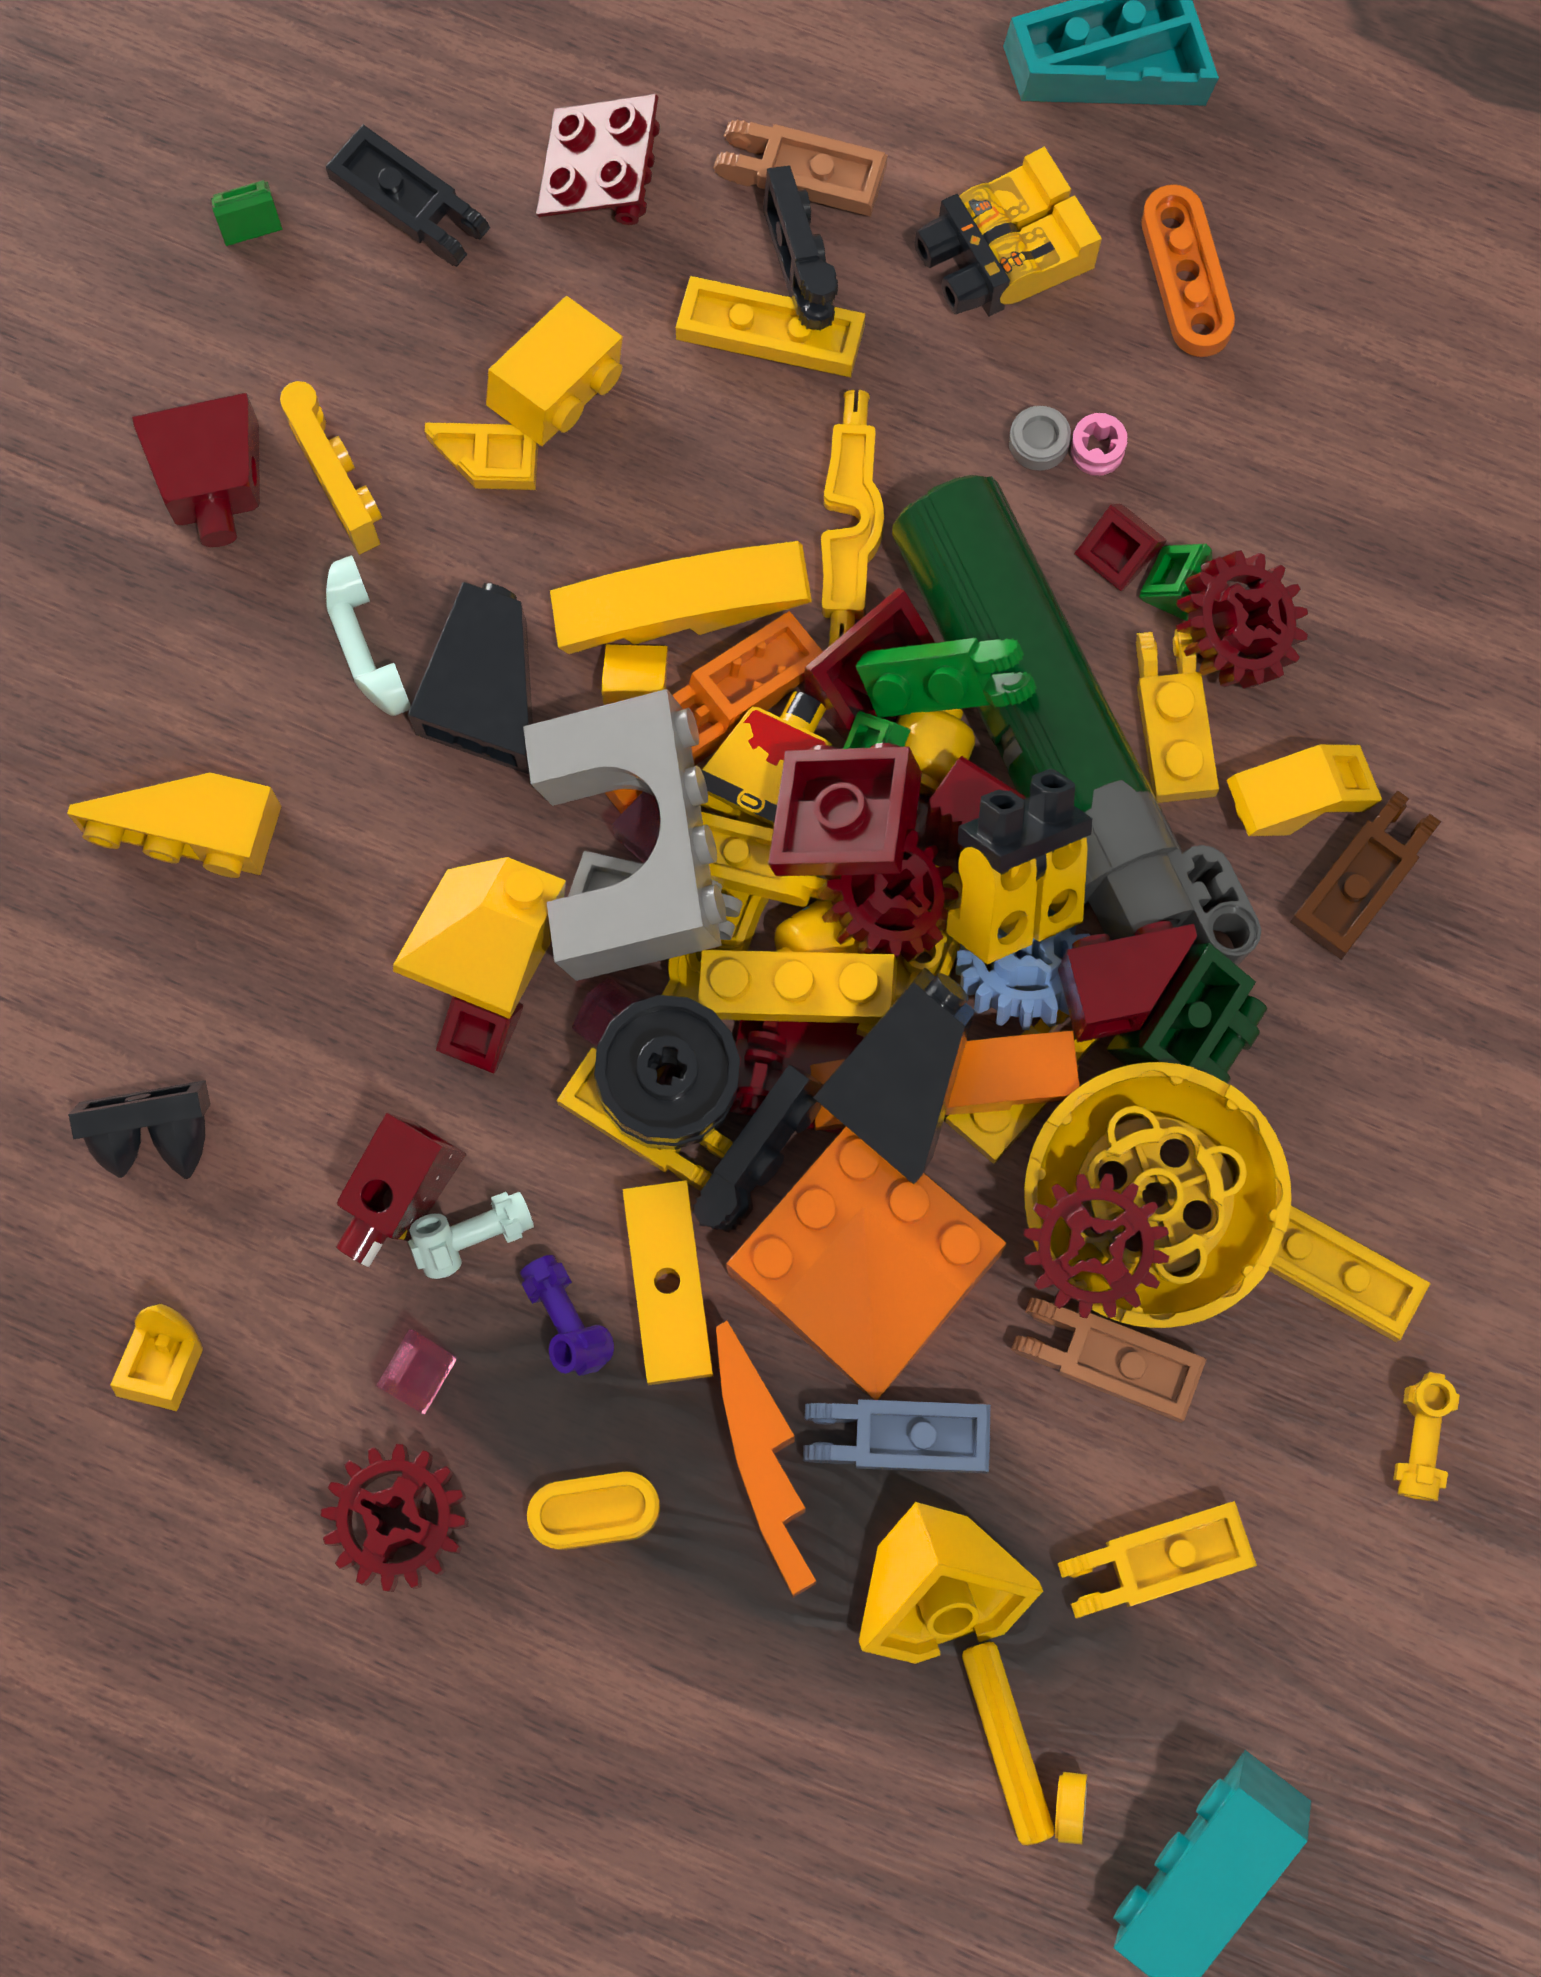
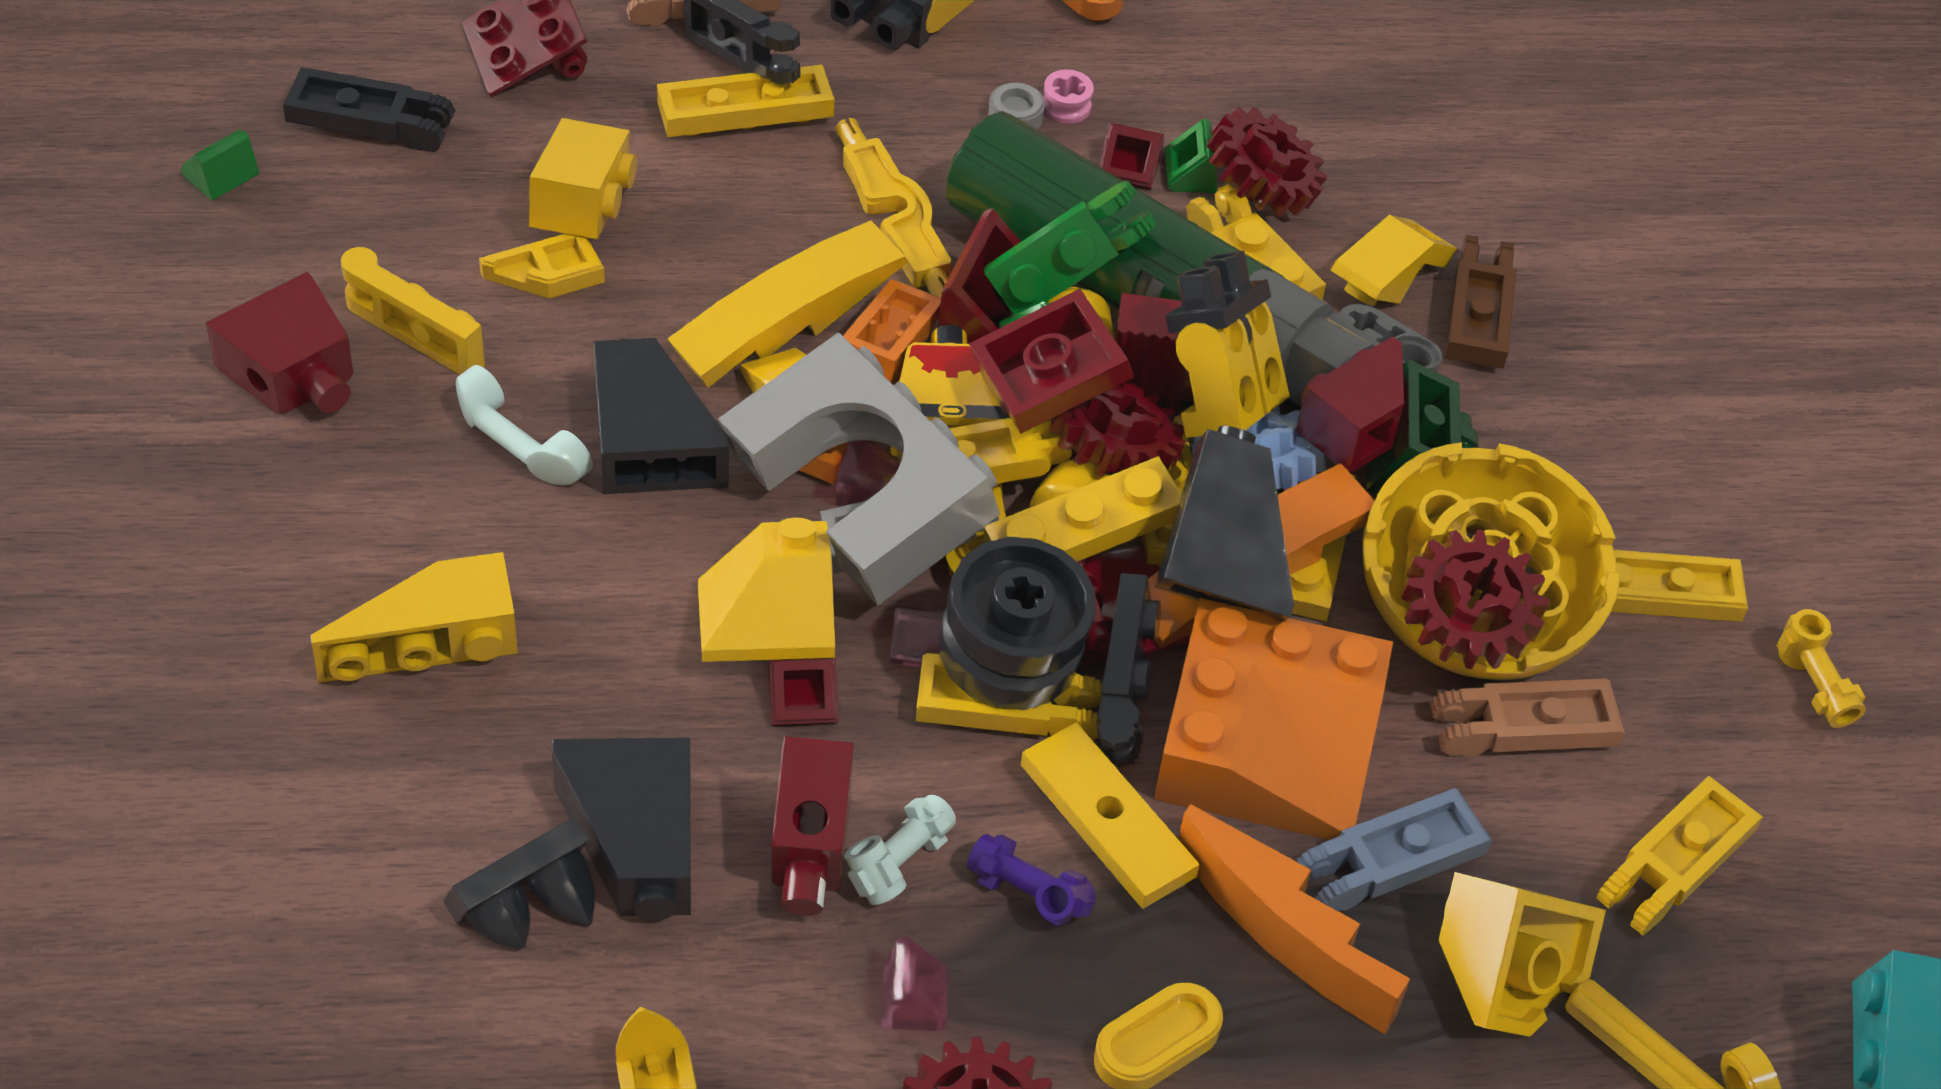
camera: 35 degrees left, 25 degrees down
(262, 1104) = (637, 817): none -> black slope

